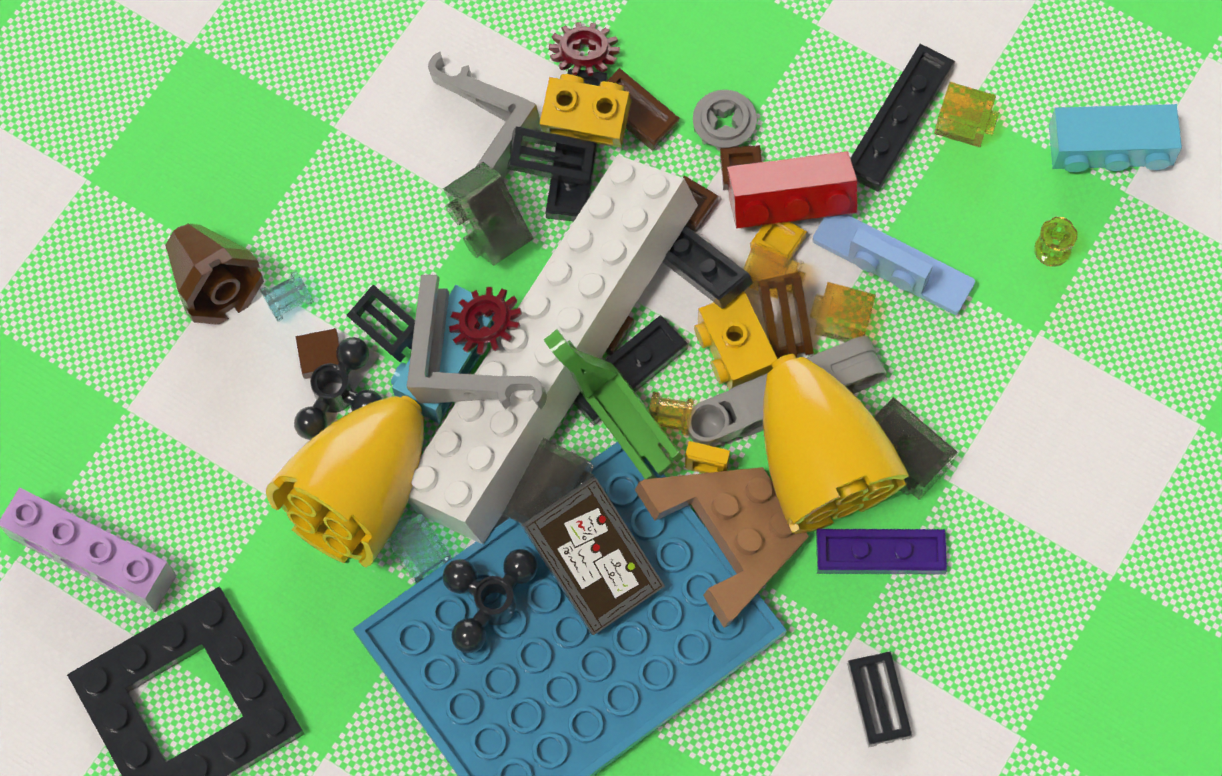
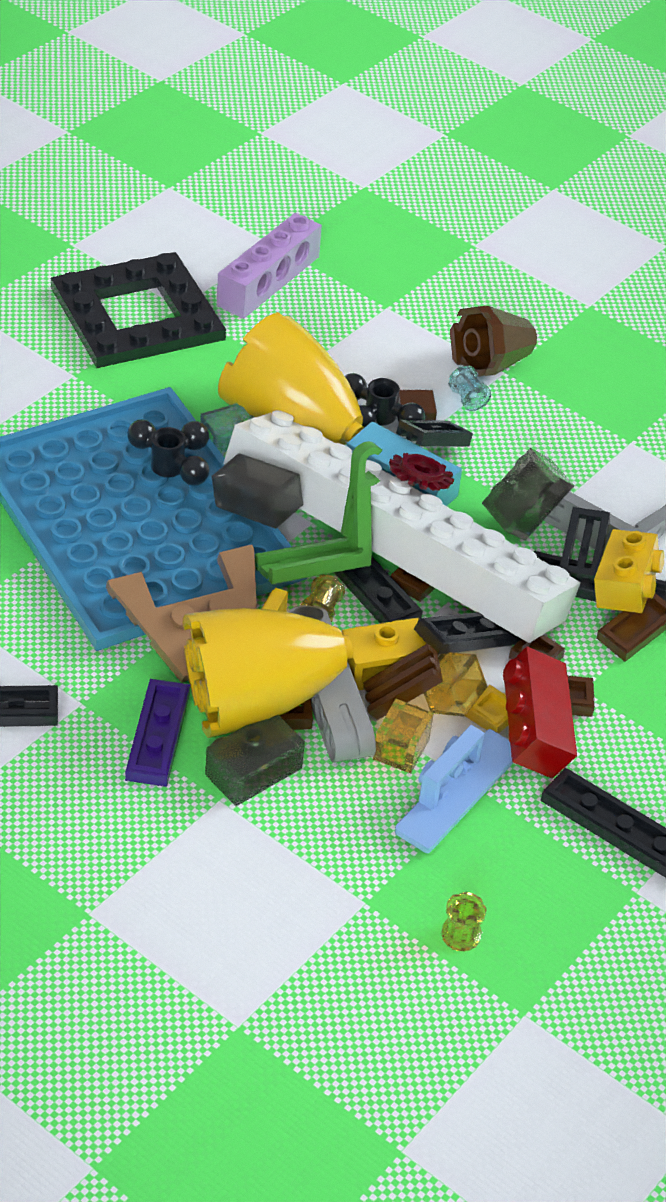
camera: 90 degrees right, 25 degrees down
(424, 373) = (396, 431): light grey hinge -> none
(593, 555) = (189, 505): tile -> none
(724, 104) = (624, 675): light grey gear -> none
(966, 115) = (619, 871): clear yellow brick -> none
(1114, 137) = (584, 1002): medium azure brick -> none

